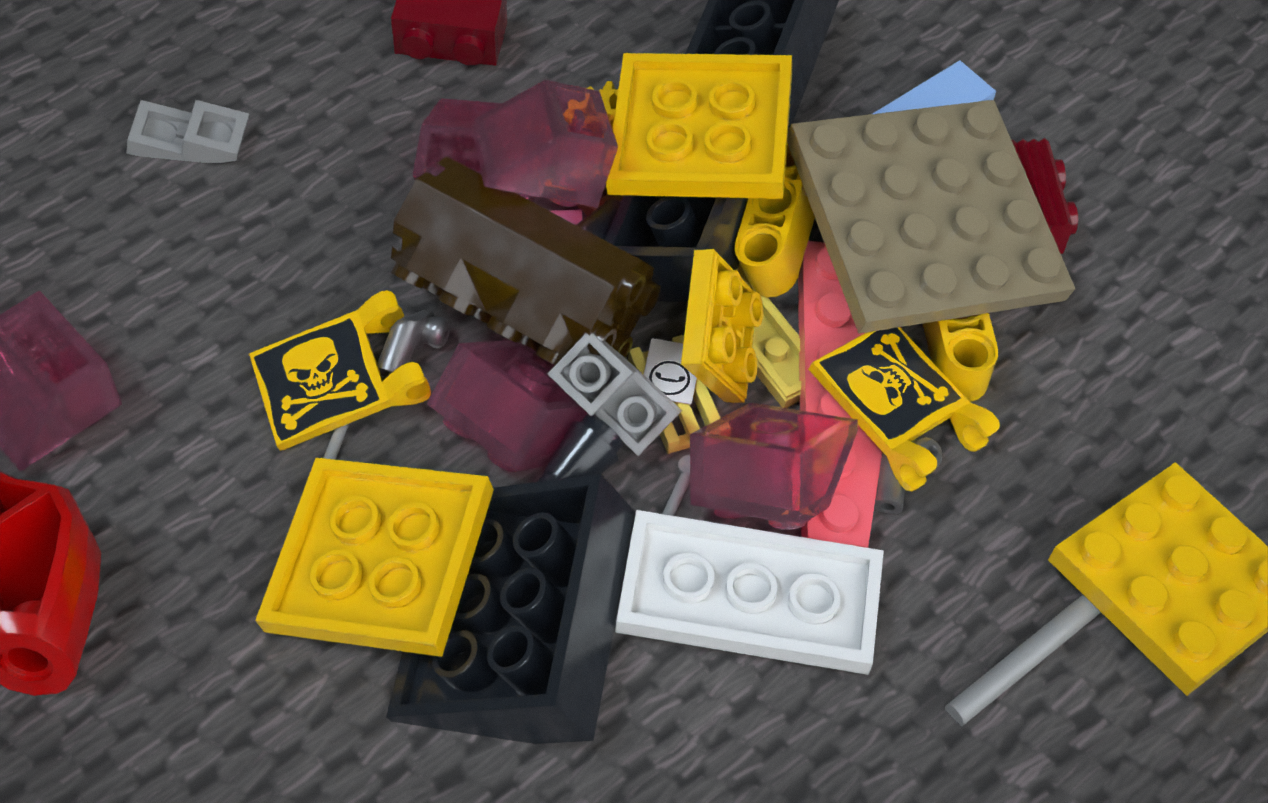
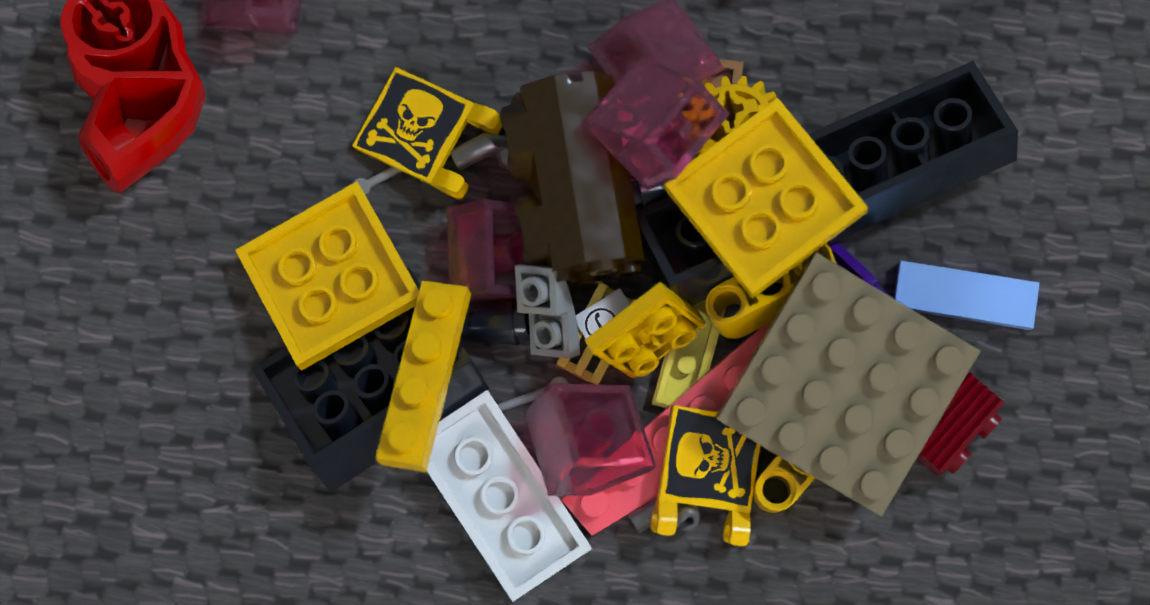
camera: 50 degrees right, 25 degrees up
(576, 526) = (423, 376): none -> yellow plate

